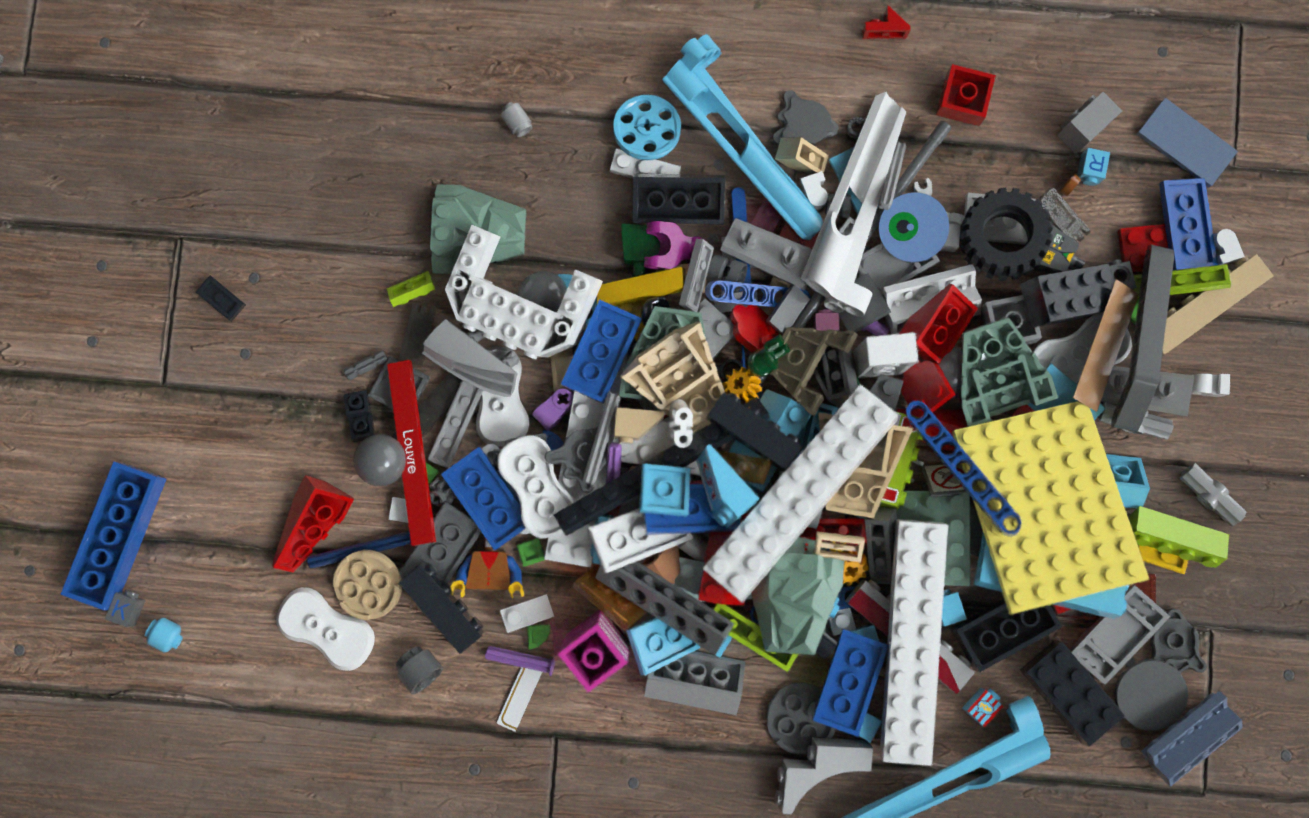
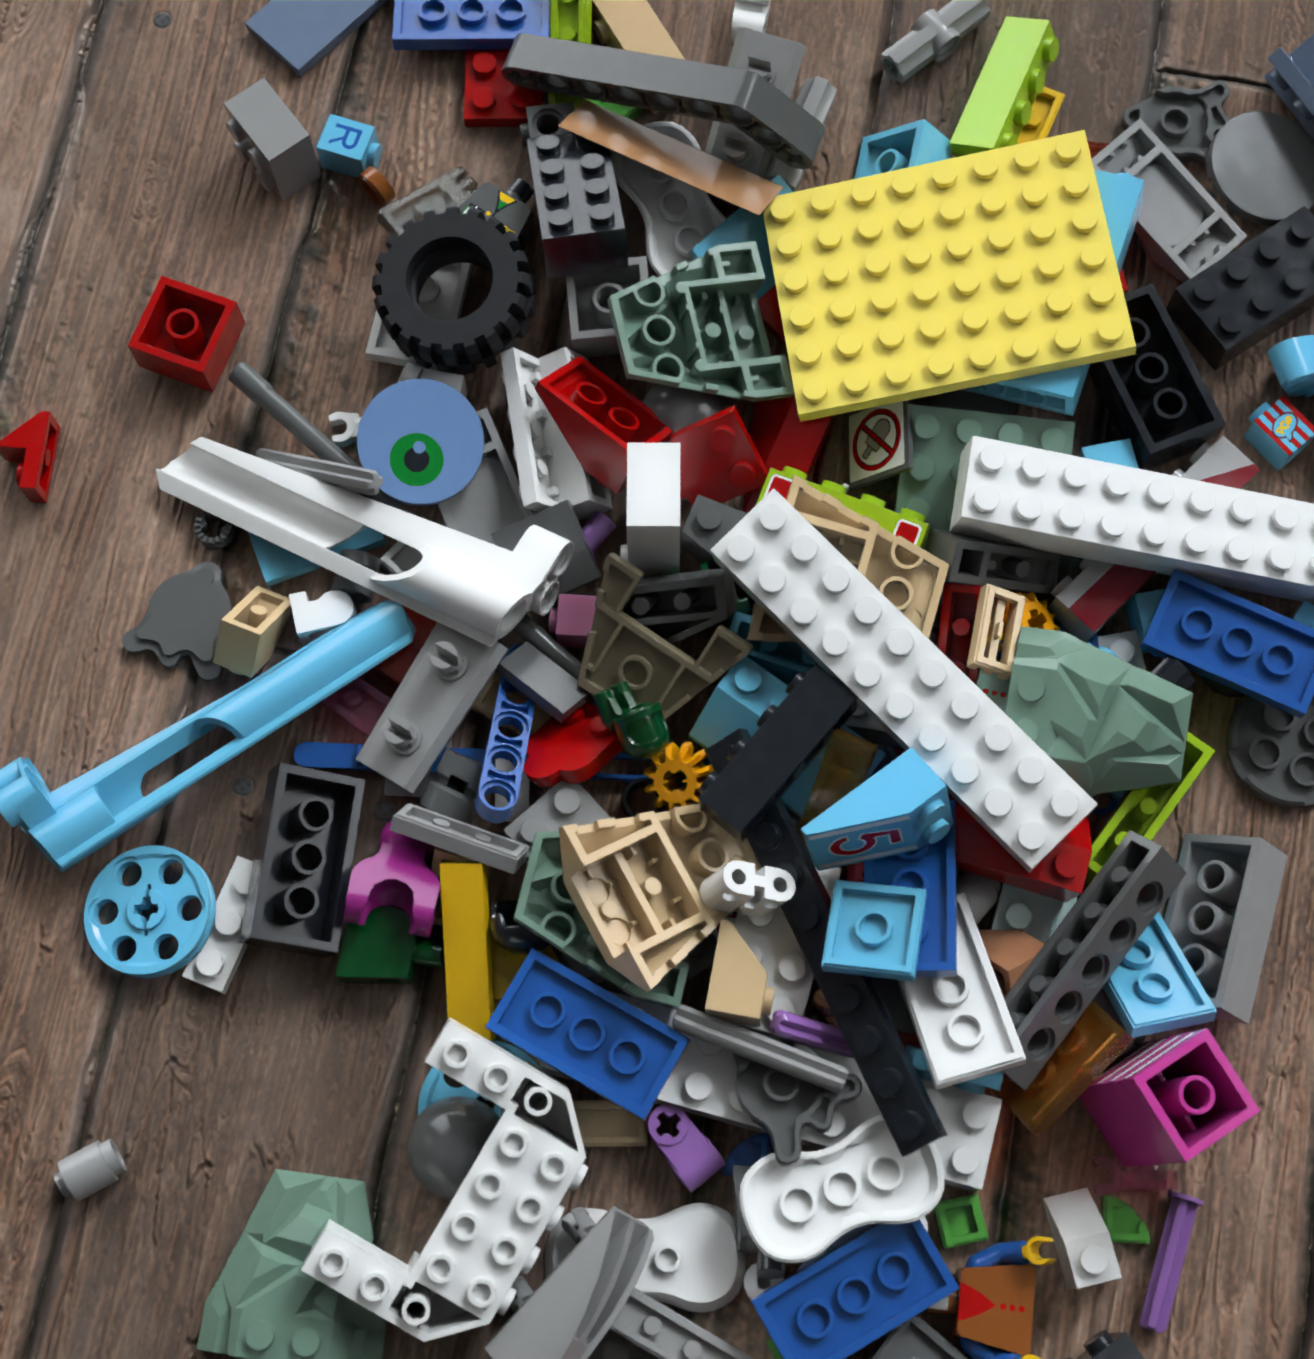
camera: 85 degrees left, 10 degrees down
(518, 698) = (1243, 1273): white sticker -> none
(965, 479) = (881, 381): blue beam -> none

